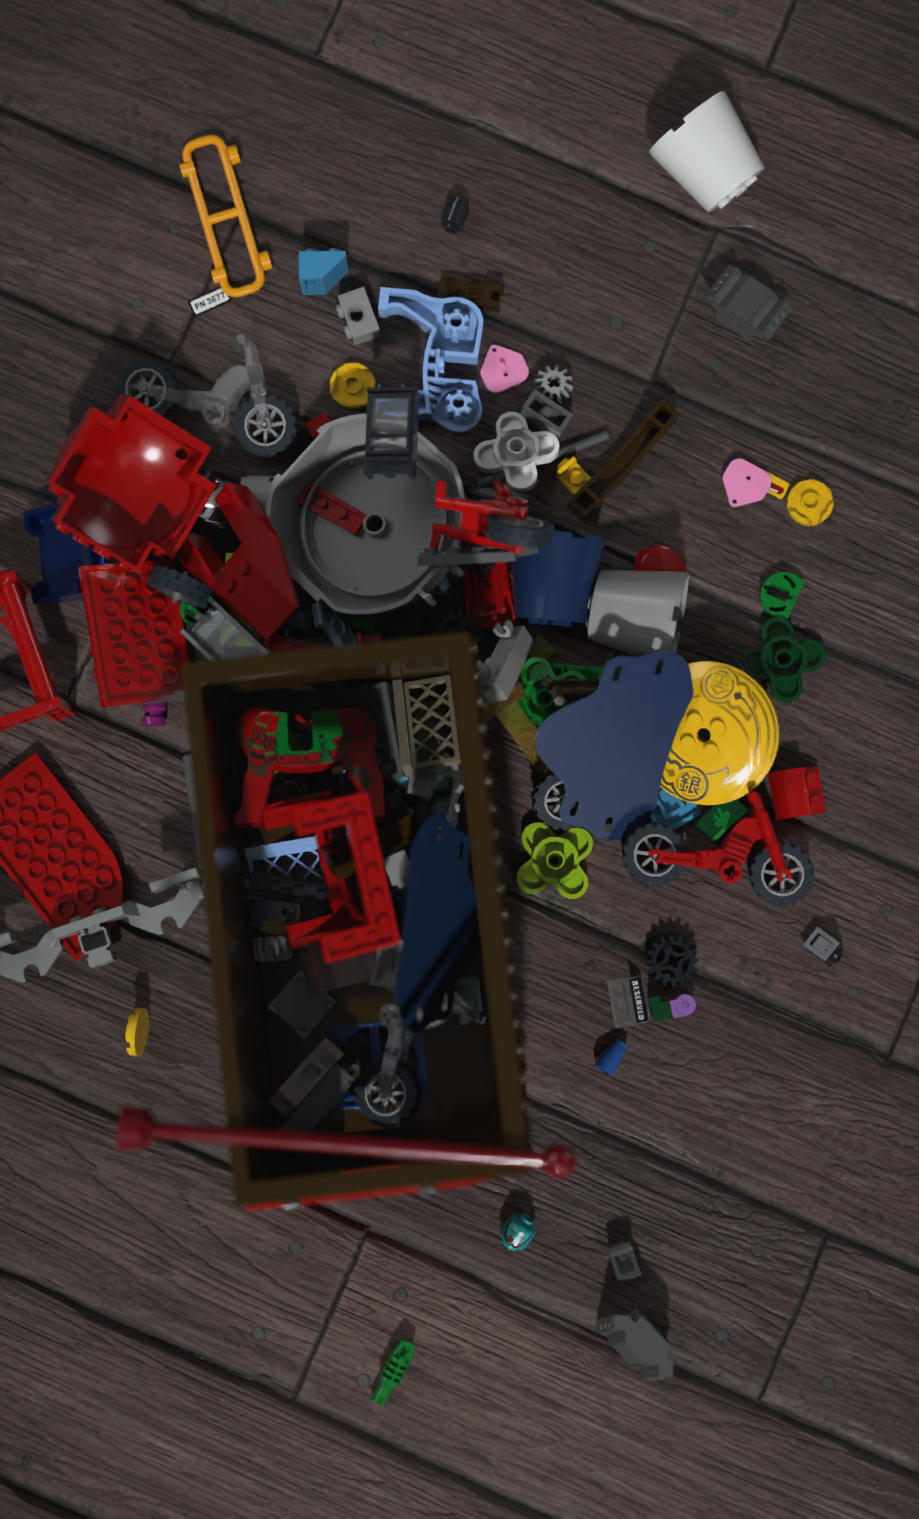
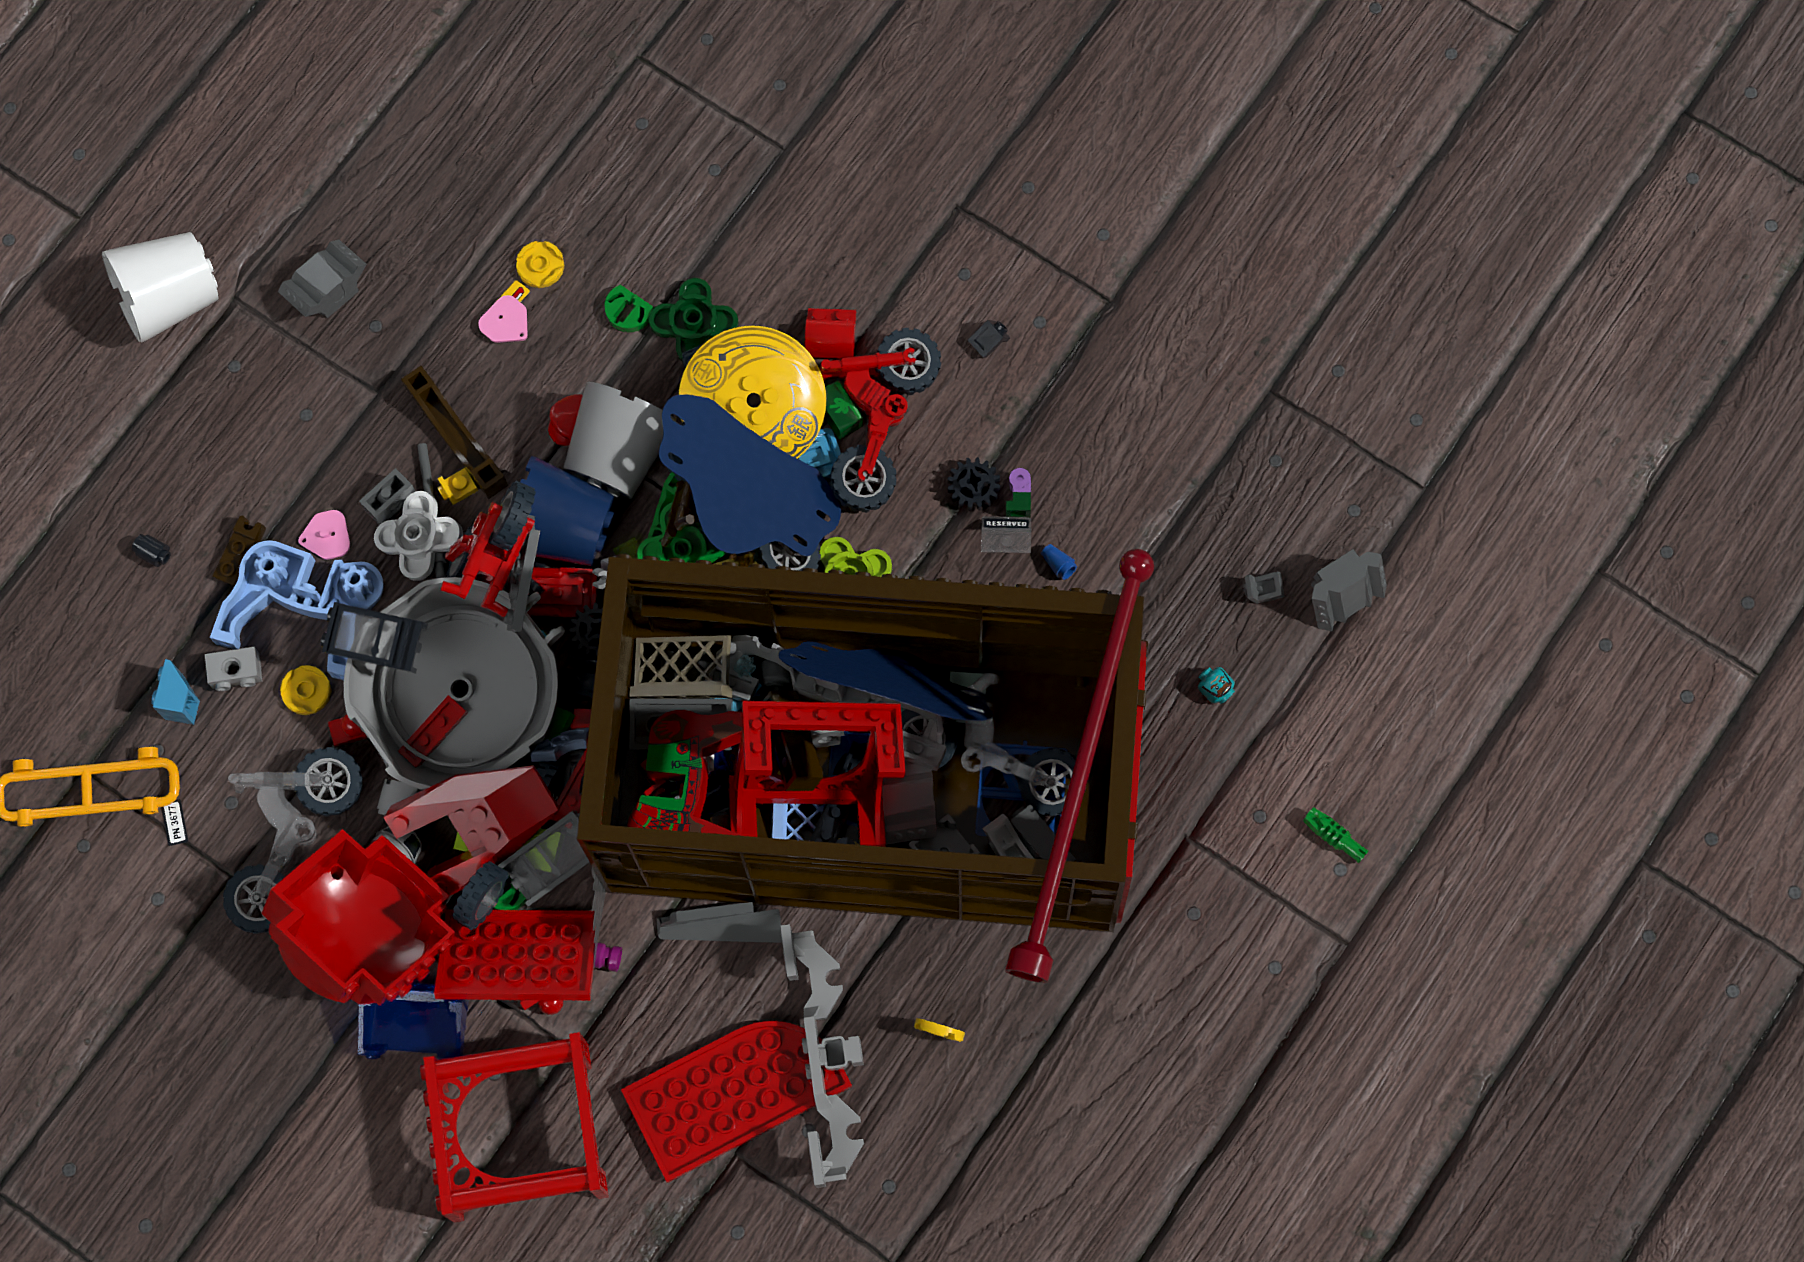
camera: 75 degrees left, 10 degrees down
(551, 377) = (347, 483): light grey gear -> none

